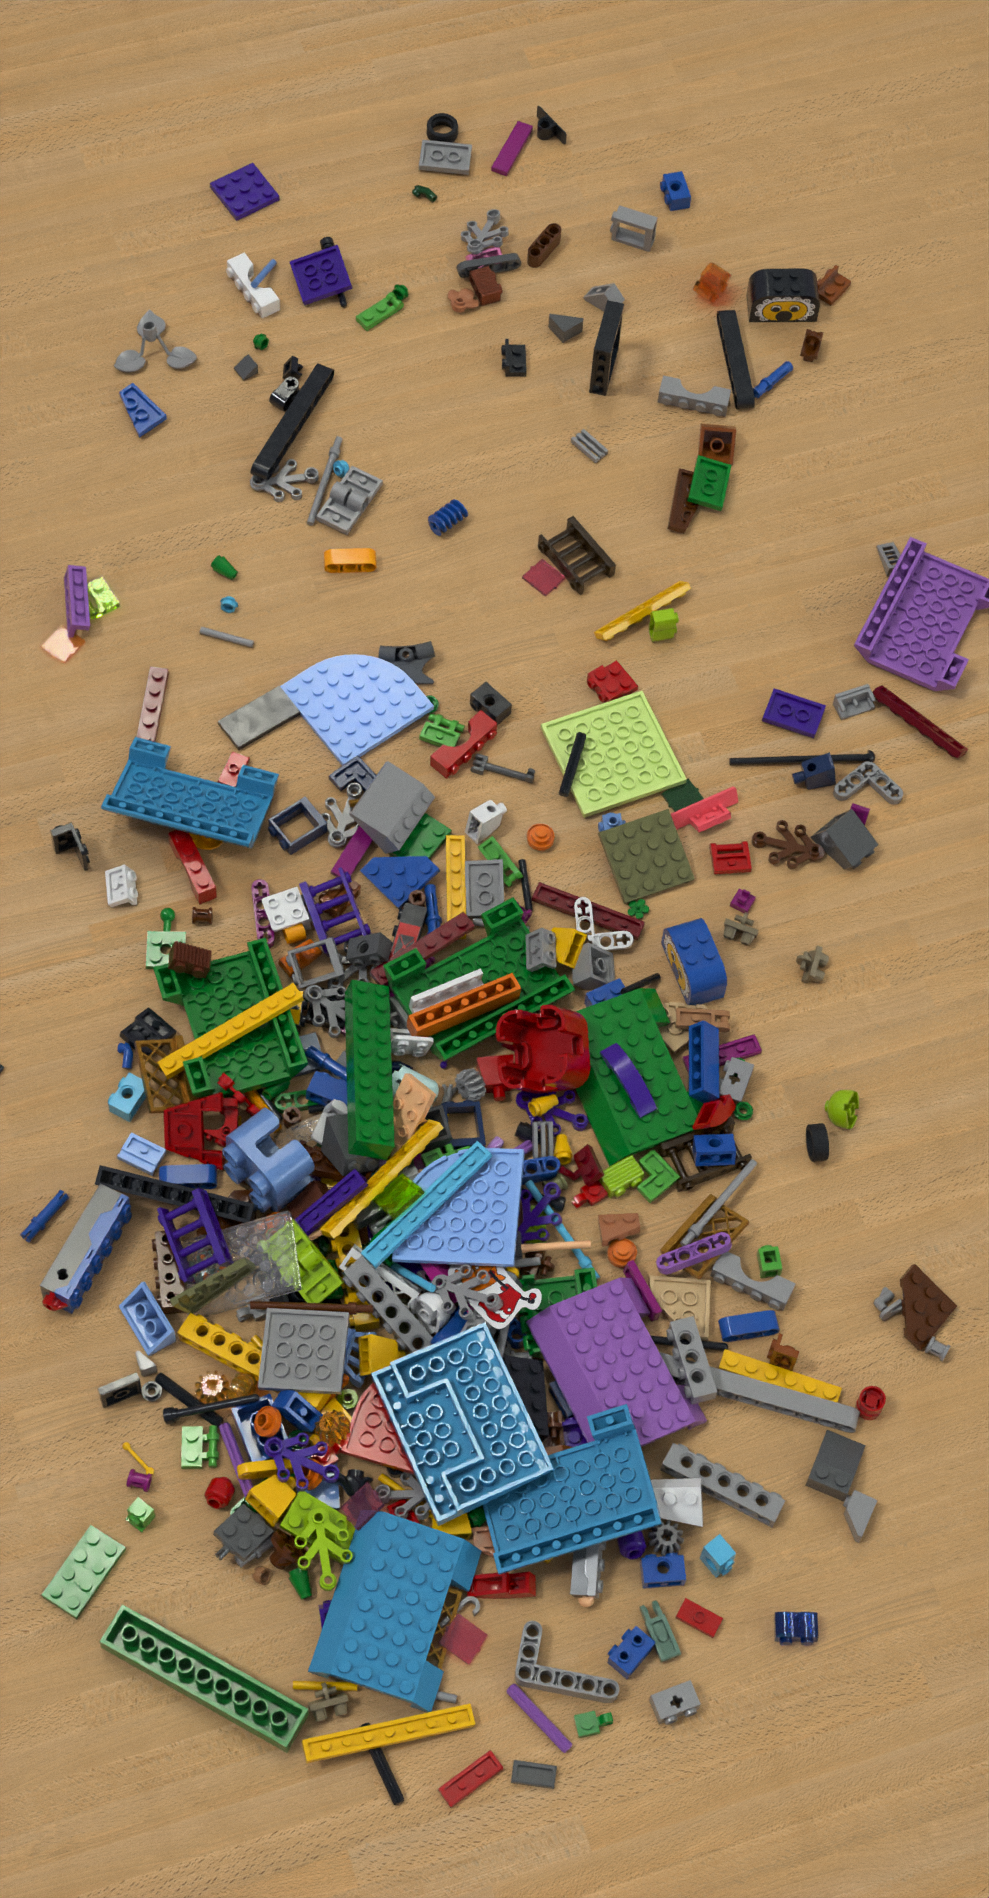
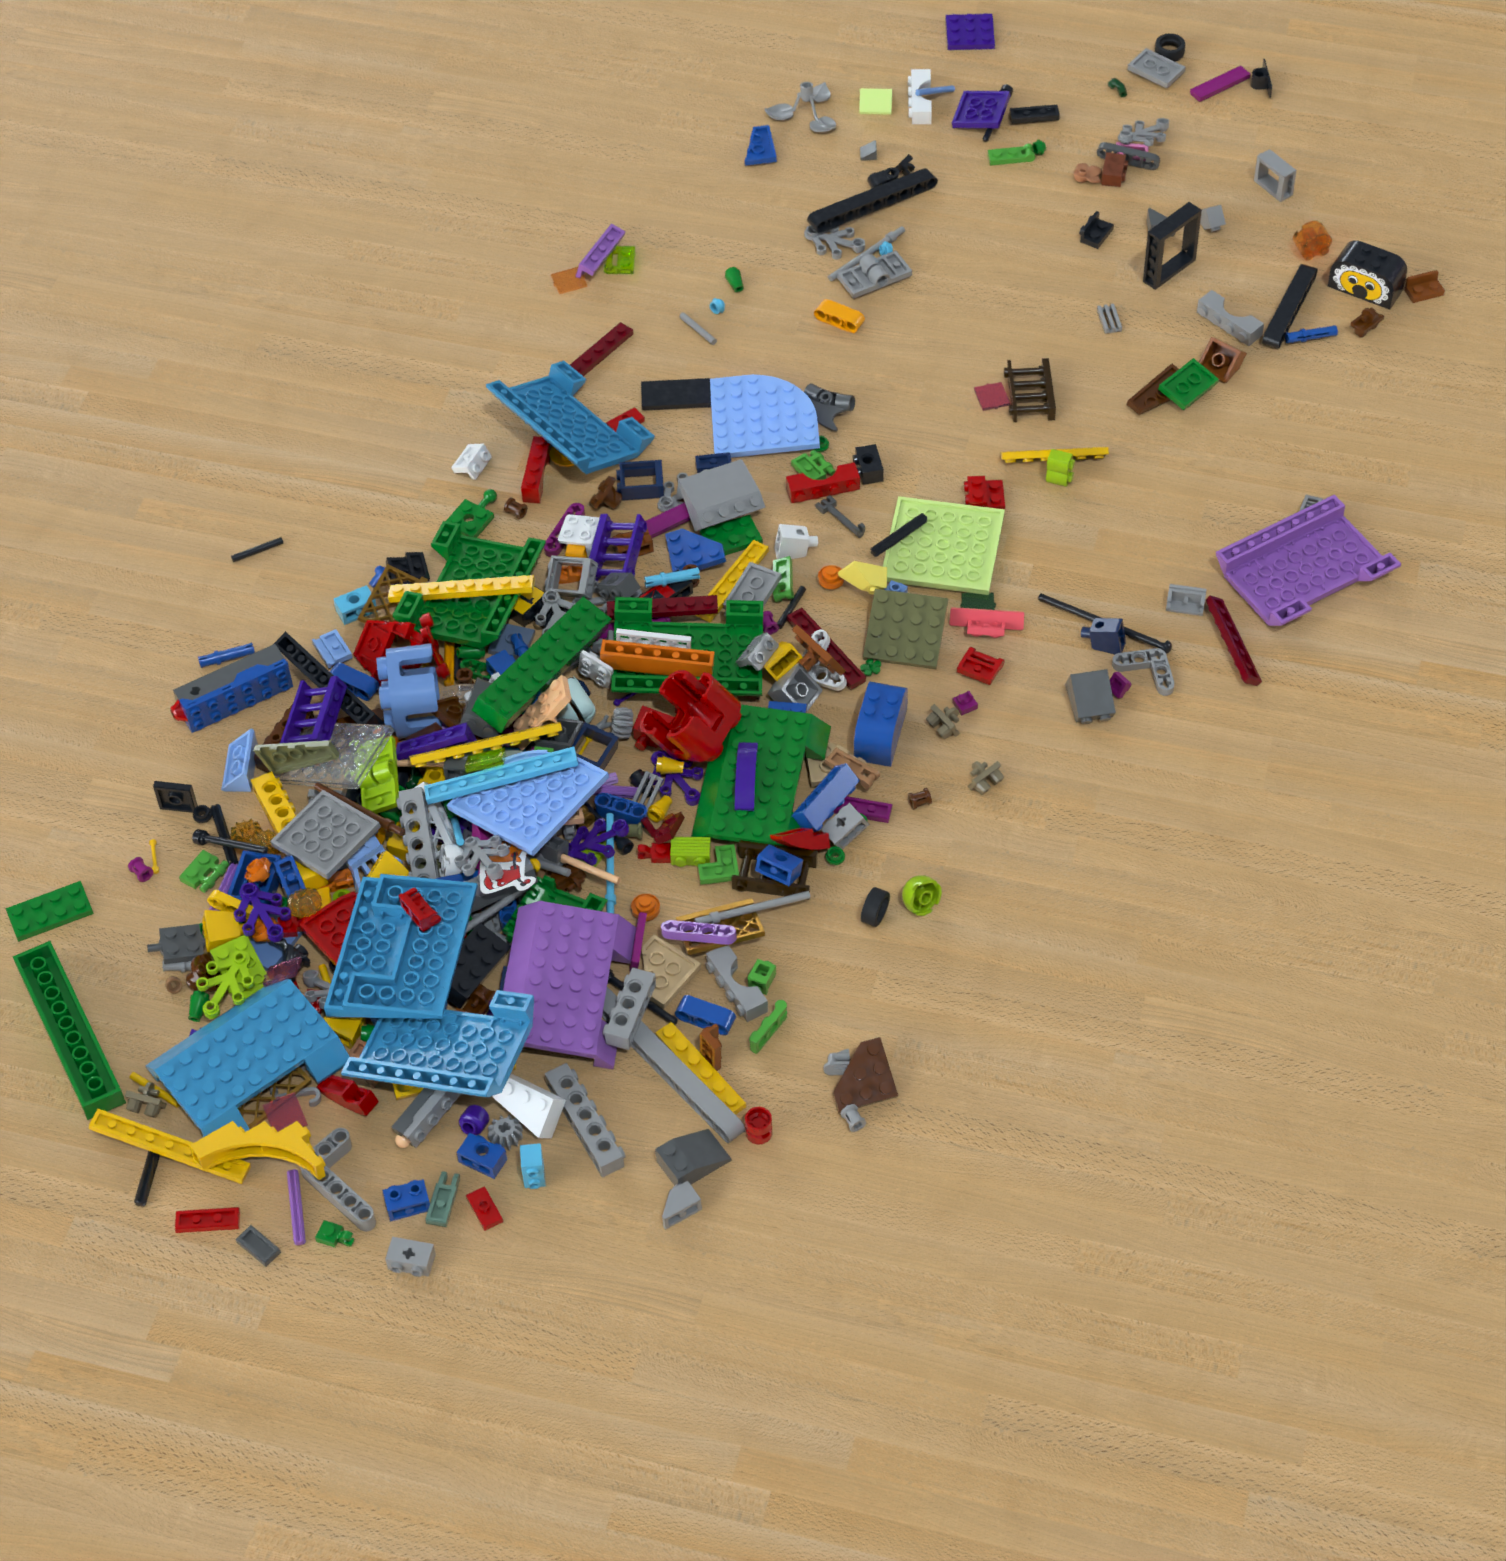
camera: 40 degrees right, 10 degrees down
(67, 837) = (454, 409): black bracket -> none
(140, 1514) = (120, 892): bright green brick -> none
(145, 1365) = (210, 792): light grey slope -> none
(189, 959) = (474, 527): copper brick -> none
(212, 309) = (875, 101): none -> yellowish green slope
(219, 1492) = (190, 909): red head -> none
(260, 341) = (895, 140): green plate -> none
(277, 858) = (606, 494): none -> reddish brown plate
(370, 257) = (1034, 114): none -> black plate
(404, 920) = (672, 577): none -> medium azure pin
(433, 919) = (707, 577): blue pin -> none
(447, 516) = (944, 317): blue piece -> none
(457, 1379) = (418, 909): none -> red hinge
(473, 1678) = (260, 1141): none -> yellow arch
(544, 245) = (1188, 160): reddish brown beam -> none
(580, 824) = (865, 576): none -> light yellow slope
(598, 926) = (815, 653): none -> dark orange plate
(617, 1226) = (657, 885): nougat wing -> none
(642, 983) = (827, 719): black bar -> none
(676, 191) = (1338, 165): blue brick -> none
(774, 1015) = (915, 801): none -> reddish brown bush
(790, 845) = (1056, 694): reddish brown plant -> none
(793, 713) = (1125, 585): dark purple plate -> none
(796, 1627) = (556, 1259): clear blue brick -> none
(809, 1305) = (768, 1027): none -> bright green plate

